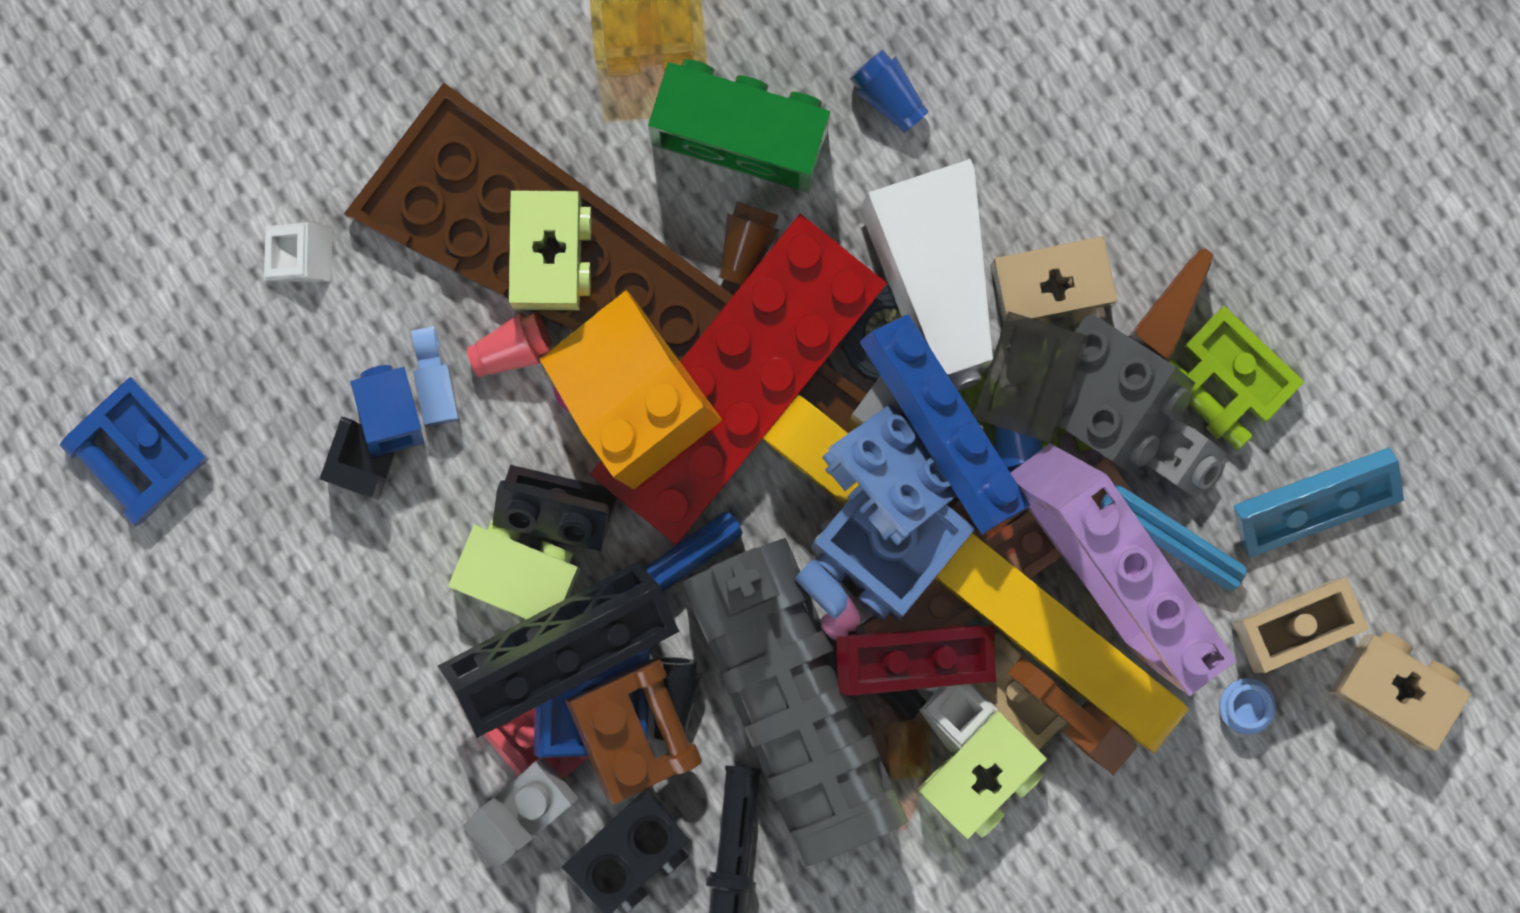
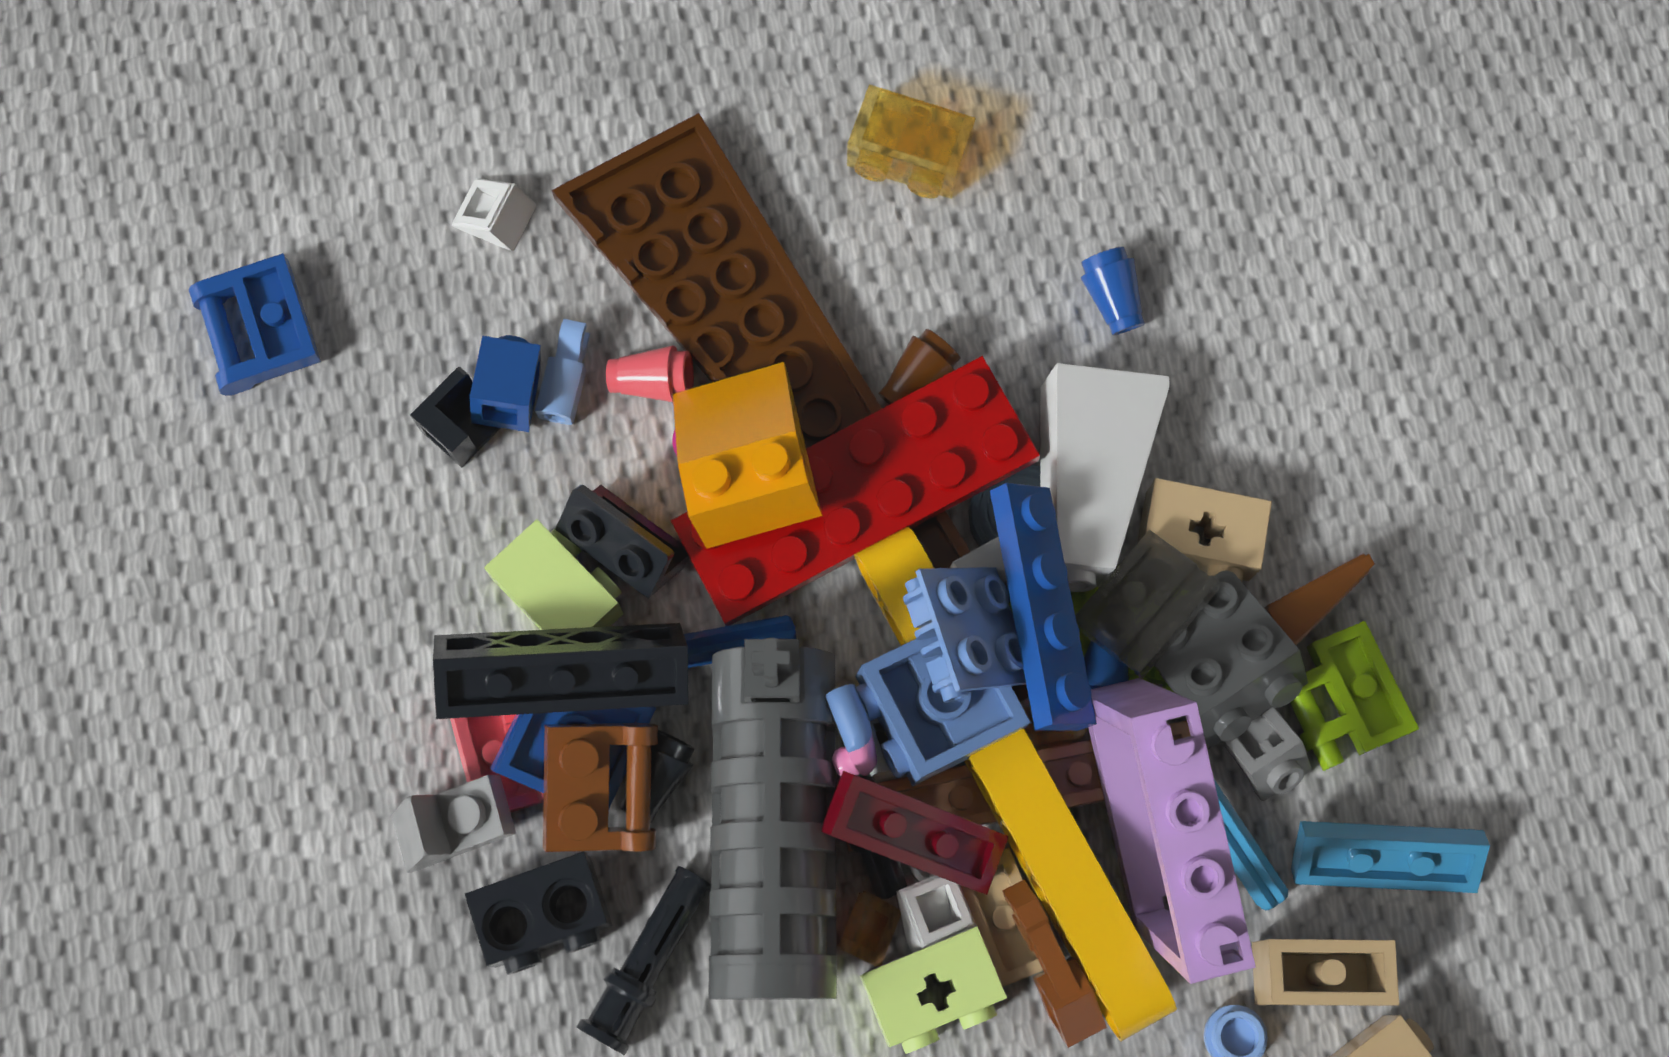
camera: 20 degrees right, 10 degrees down
(534, 220) = (724, 263): yellowish green brick -> none
(739, 124) = (958, 255): green brick -> none

